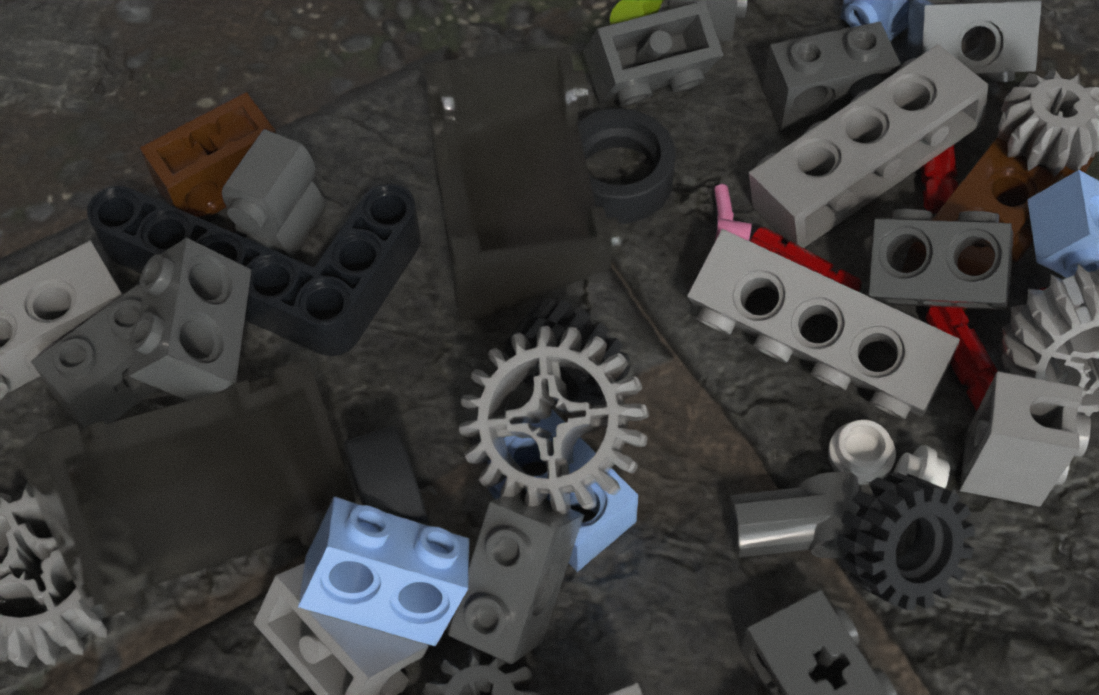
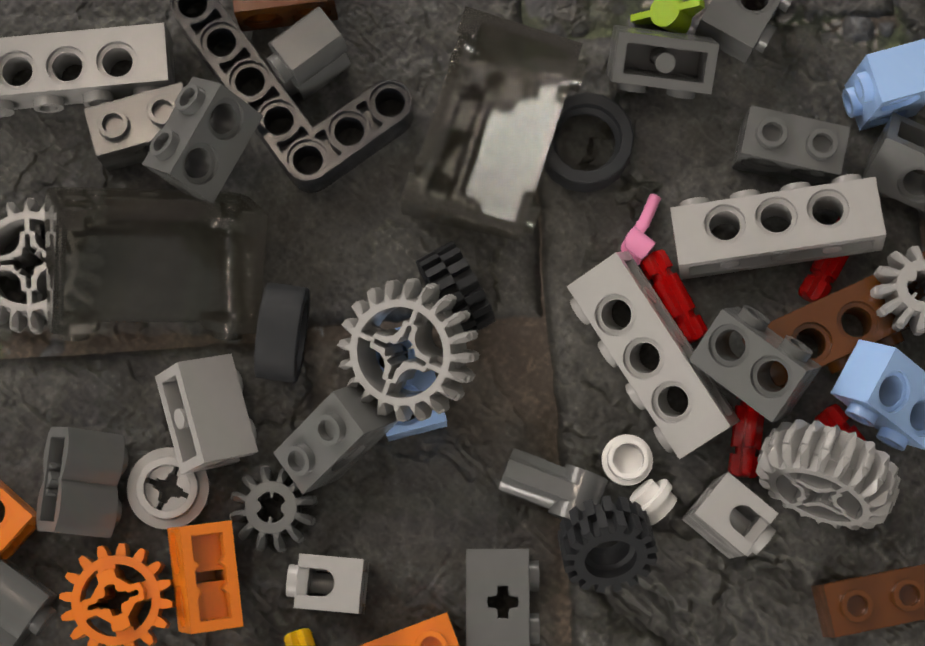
camera: 25 degrees right, 20 degrees up
(385, 572) = (249, 395): light blue brick -> none

